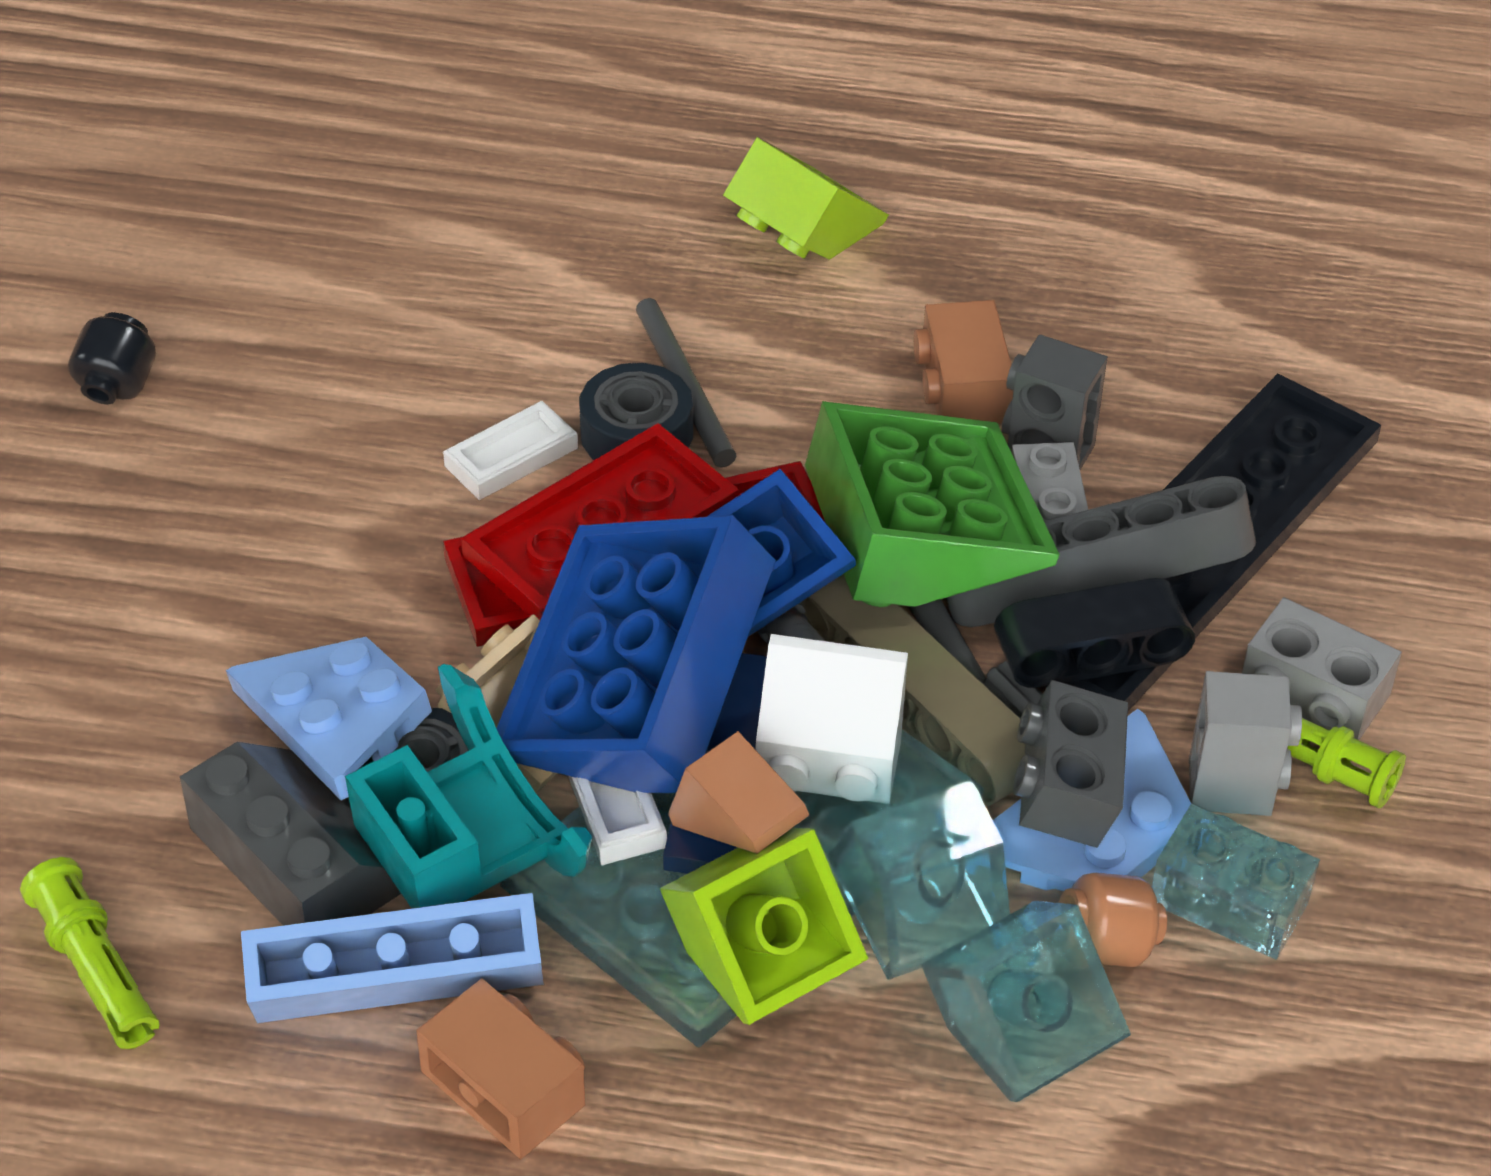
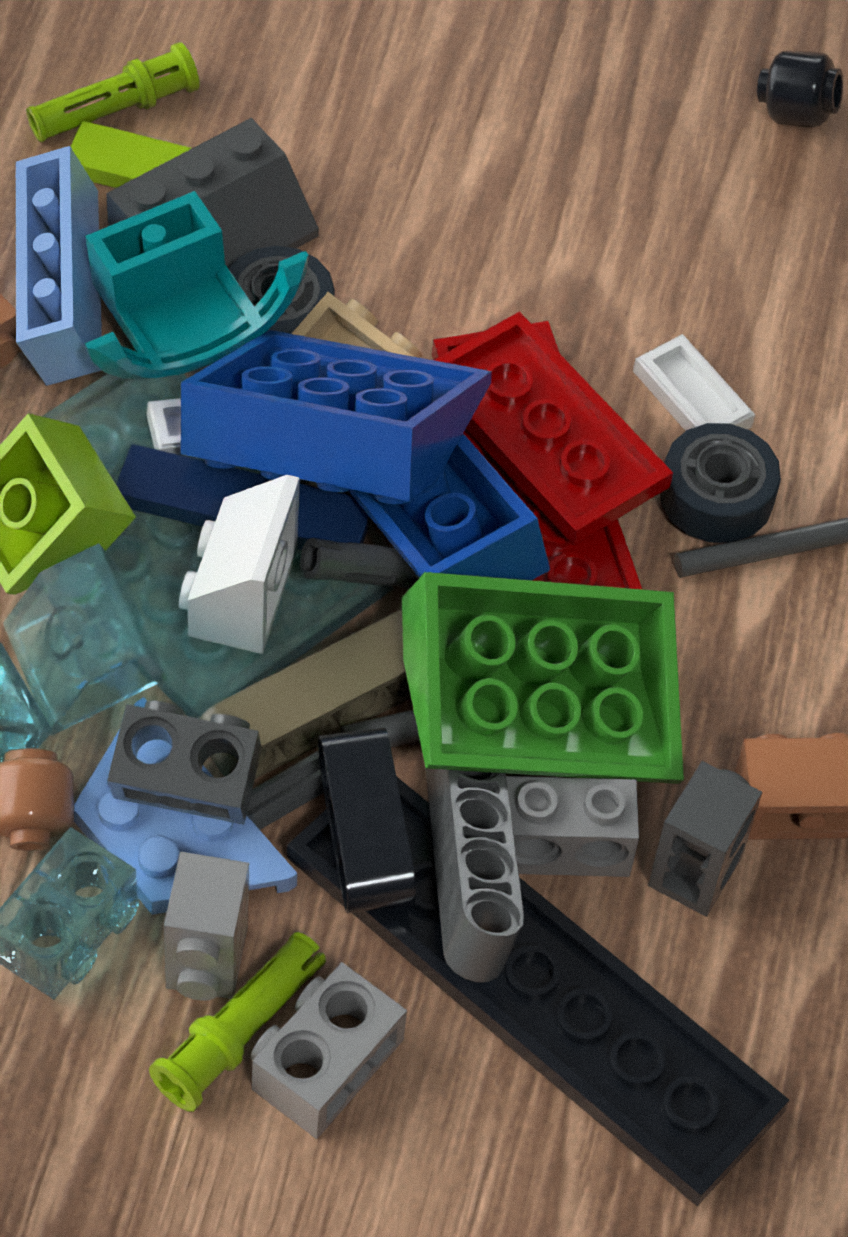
camera: 90 degrees right, 10 degrees up
(195, 936) = (119, 156): none -> lime tile
(333, 705) = (349, 230): light blue wing -> none
(736, 798) = (139, 464): nougat slope -> none

